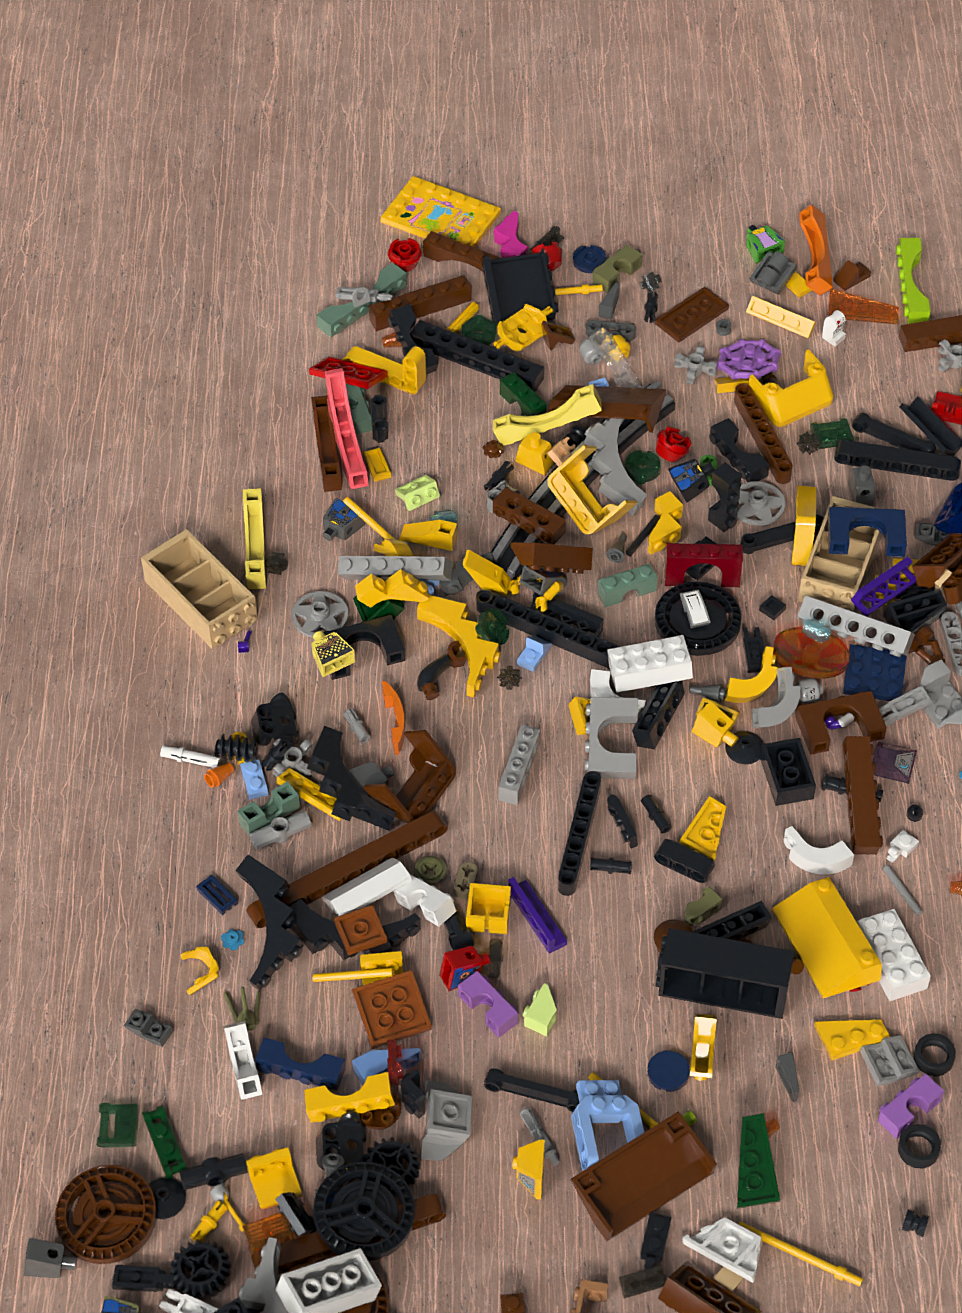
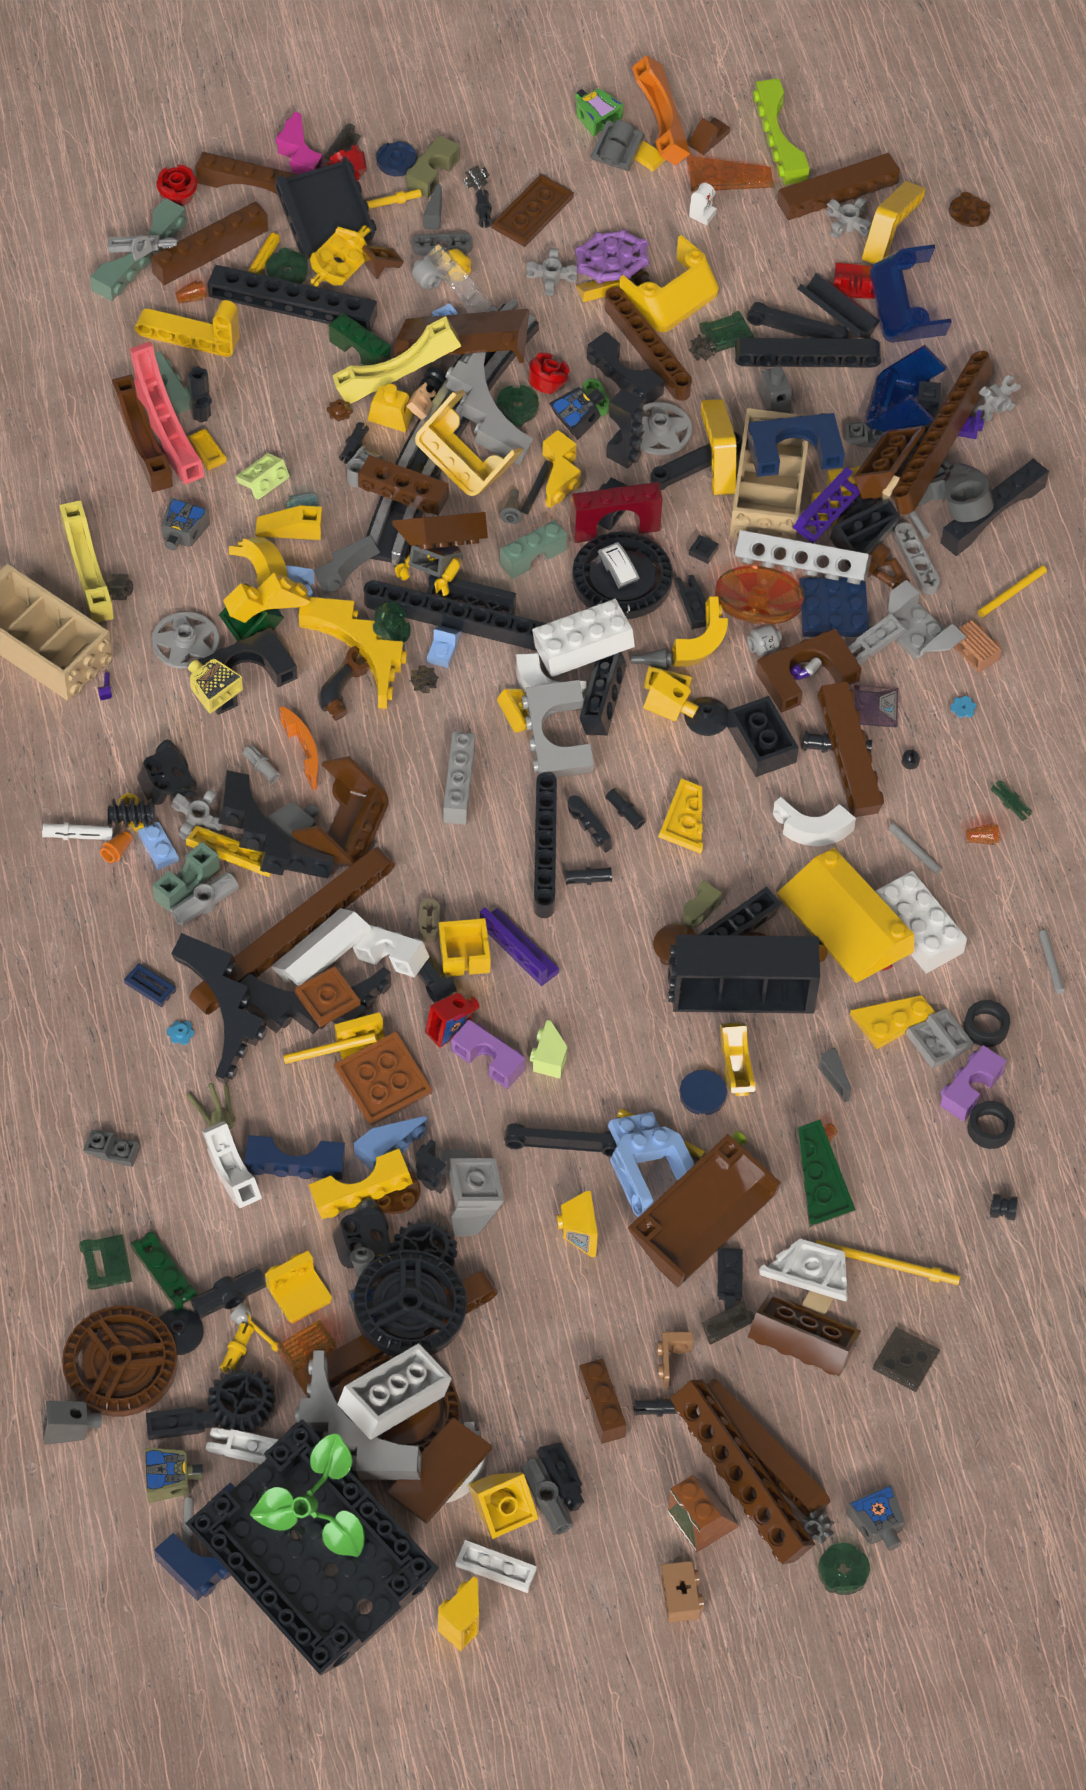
camera: 15 degrees left, 5 degrees up
(204, 954) = (156, 1056): yellow helmet -> none
(276, 754) = (179, 813): black pin -> none
(293, 1208) = (327, 1314): black plate -> none
(354, 373) = (165, 343): red tile -> none
(369, 520) = (215, 518): yellow bar -> none
(385, 566) = (294, 566): light grey arch -> none
(395, 1069) = (407, 1143): clear red plate -> none
(402, 321) = (196, 270): black arch -> none
(430, 207) = (195, 122): yellow plate -> none
(430, 863) = (386, 907): olive gear -> none
(486, 574) = (371, 561): yellow slope -> none
(496, 957) = (485, 1001): clear smoke axle -> none
(538, 1134) = (576, 1185): light grey piece -> none
(684, 861) = (669, 856): black beam -> none
(726, 323) = (576, 216): dark grey bush -> none
(781, 317) = (637, 198): yellow plate -> none
(783, 706) = (741, 661): light grey arch -> none
(816, 630) = (760, 568): clear light blue brick -> none
(903, 845) = (904, 798): white plate -> none

